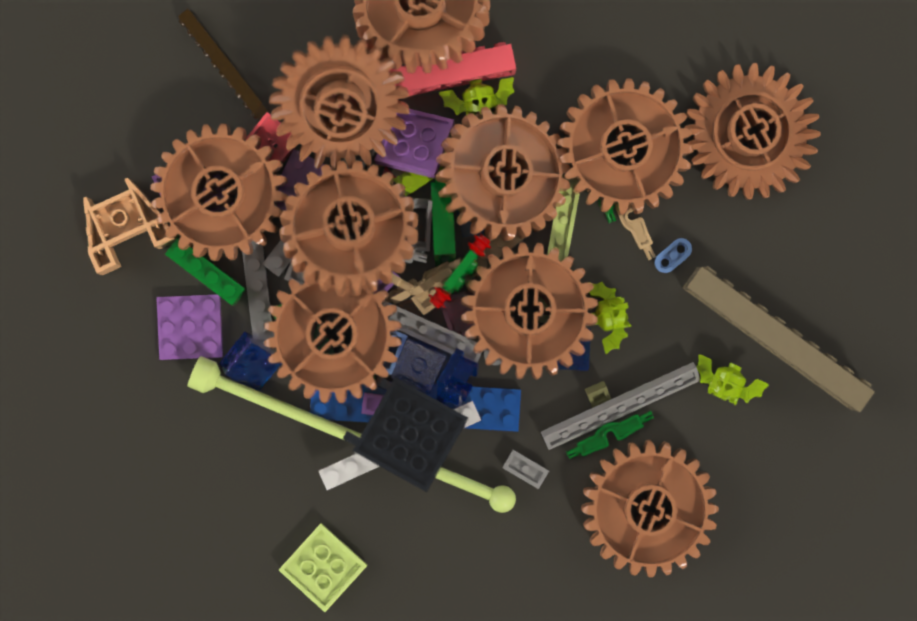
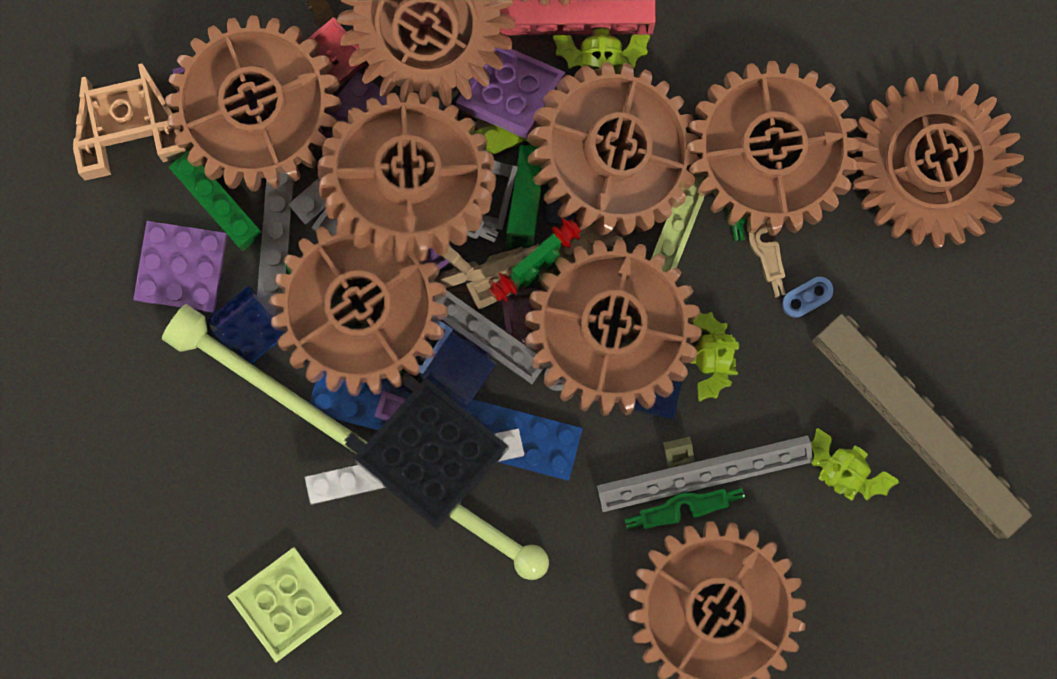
camera: 10 degrees right, 5 degrees down
(452, 383) = (493, 396): clear blue panel -> none
(525, 469) = (568, 530): light grey plate -> none

